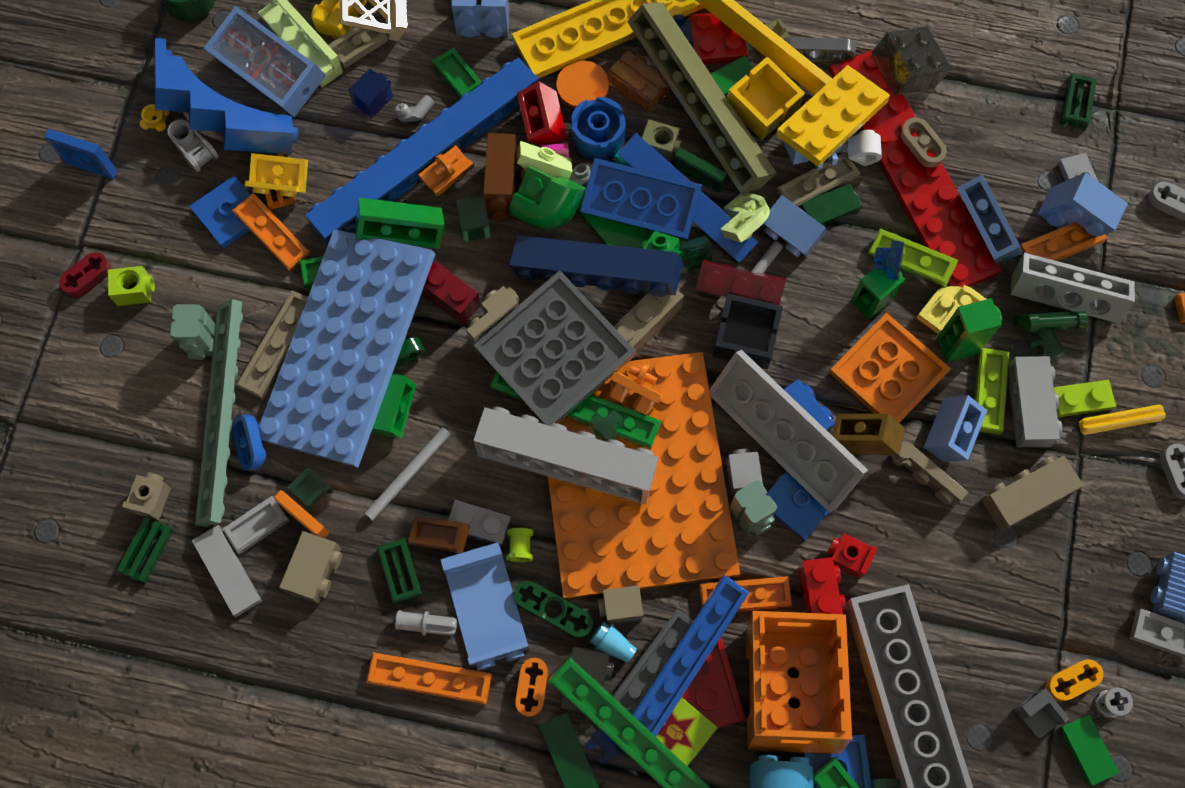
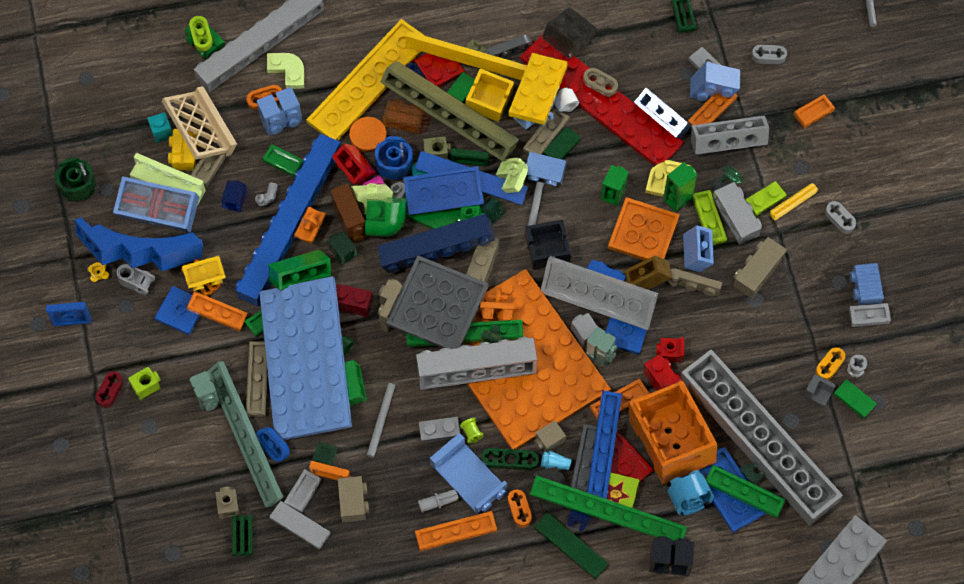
camera: 25 degrees left, 5 degrees down
(406, 595) = (417, 490): dark green tile -> none
(438, 534) = (419, 446): reddish brown tile -> none
(724, 279) = (520, 218): dark red arch -> none
(890, 259) = (614, 164): clear blue tile -> none
(918, 258) = (626, 156): lime tile -> none
(1052, 320) = (728, 158): dark green plate -> none

